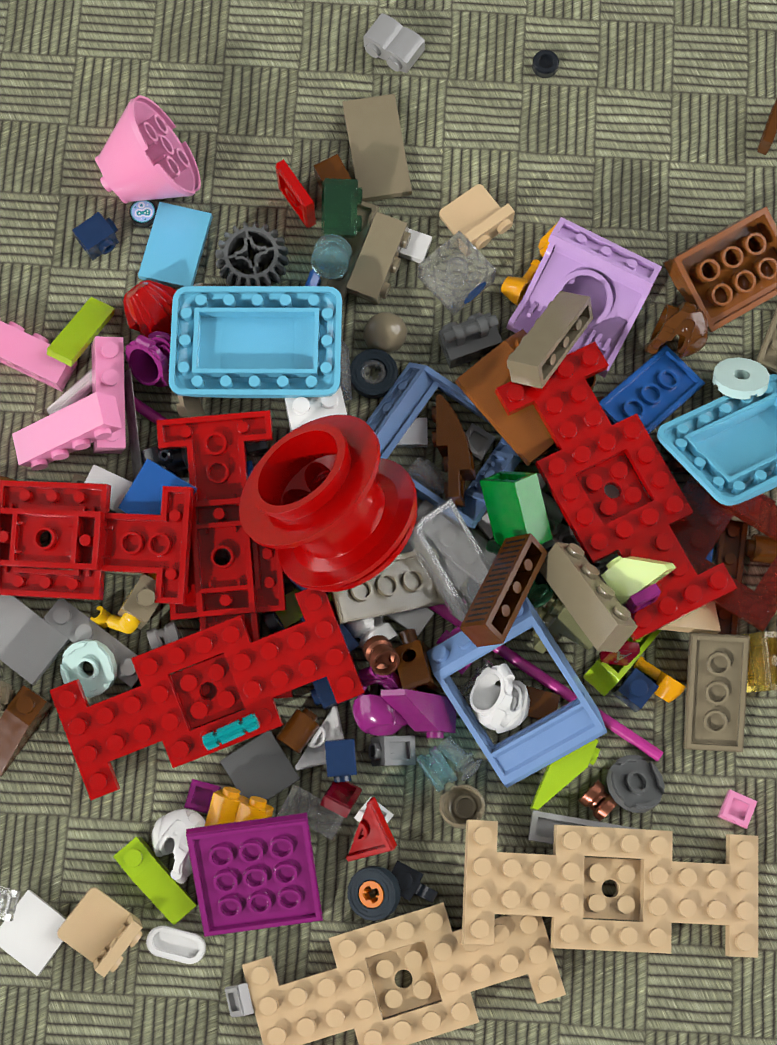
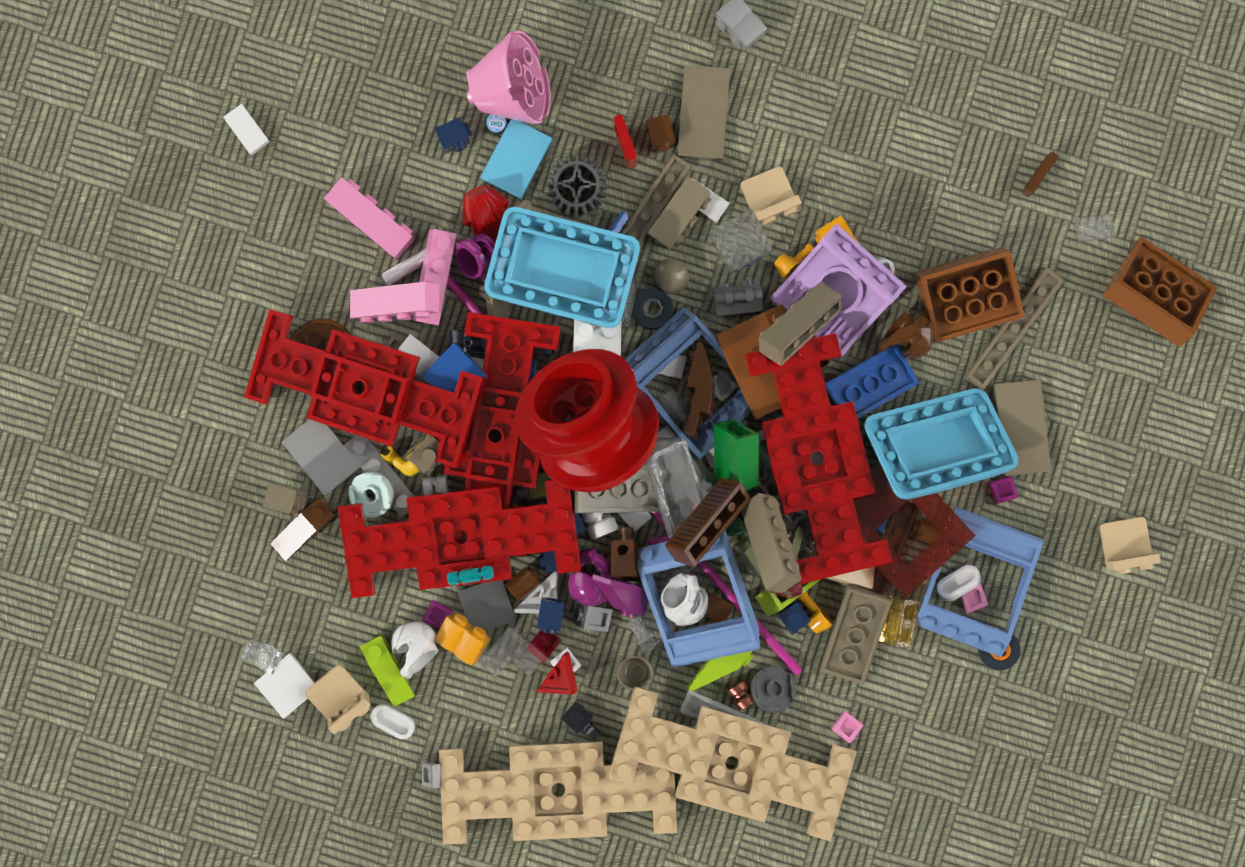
camera: 15 degrees right, 10 degrees up
(80, 331) = (423, 216): lime tile -> none
(132, 424) = (447, 306): flat silver sticker -> none
(254, 874) = (464, 686): magenta tile -> none
(331, 256) = (641, 204): clear light blue wheel -> none
(340, 207) = (658, 164): clear green brick -> none
(381, 655) = (600, 544): copper wheel -> none
(388, 896) = (551, 732): black bush -> none
(436, 768) = (625, 640): clear light blue wheel -> none
(545, 64) = (864, 71): black tile -> none
(634, 574) = (812, 534): yellowish green slope -> none
(643, 598) = (814, 555): magenta tile -> none
(754, 377) = (952, 377): light aqua tile -> none

